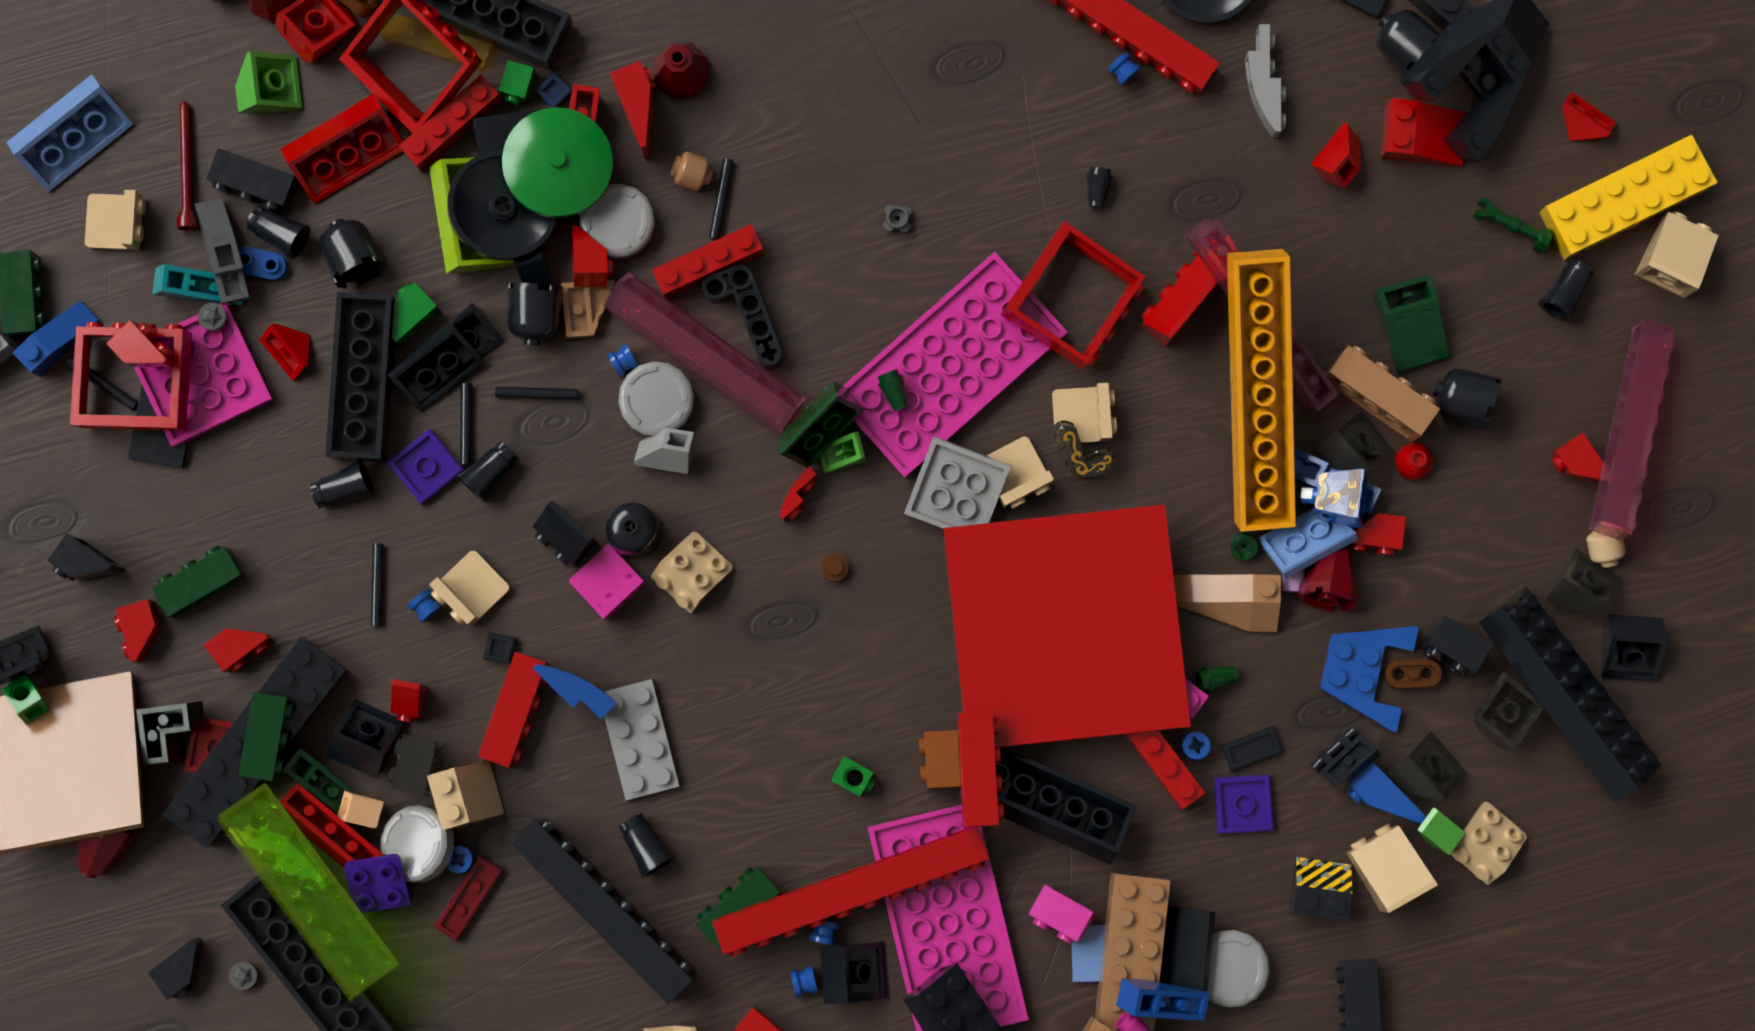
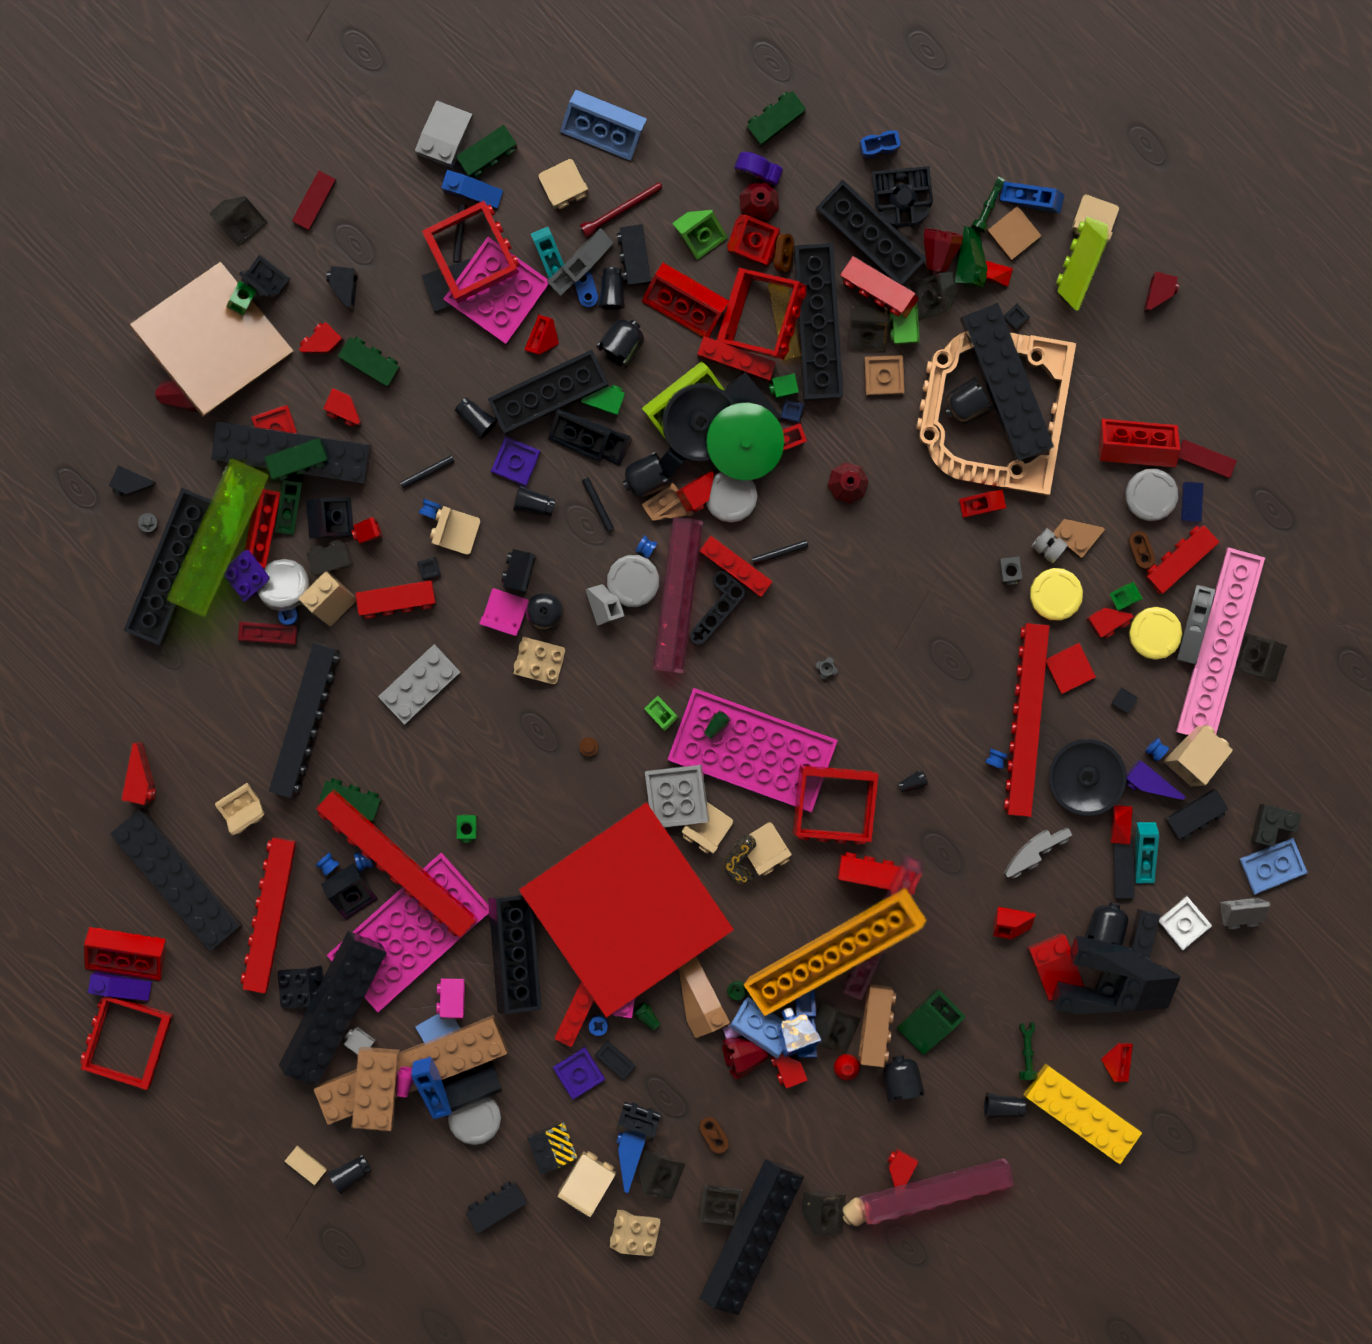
camera: 65 degrees right, 5 degrees up
(137, 347) = (491, 247): slope -> none
(162, 728) = (268, 391): pearl dark grey brick -> none
(212, 317) = (536, 279): dark grey tile -> none
(360, 809) = (285, 538): light nougat panel -> none
(465, 423) = (554, 471): black bar -> none
(575, 688) = (428, 631): blue slope -> none
(635, 92) = (814, 466): red slope -> none
(645, 845) = (357, 723): black plant -> none
(691, 171) = (787, 525): medium nougat head -> none
(792, 504) = (615, 699): red slope -> none
(819, 425) = (670, 690): dark green slope -> none
(941, 759) = (506, 875): dark orange brick -> none
(978, 769) = (509, 903): red brick -> none
(1354, 670) = (698, 1097): blue wing -> none
(1440, 832) = (624, 1202): bright green slope -> none
(1454, 646) = (744, 1151): black brick -> none
(1633, 647) = (802, 1260): black slope -> none
(1677, 254) = (1063, 1163): tan slope -> none

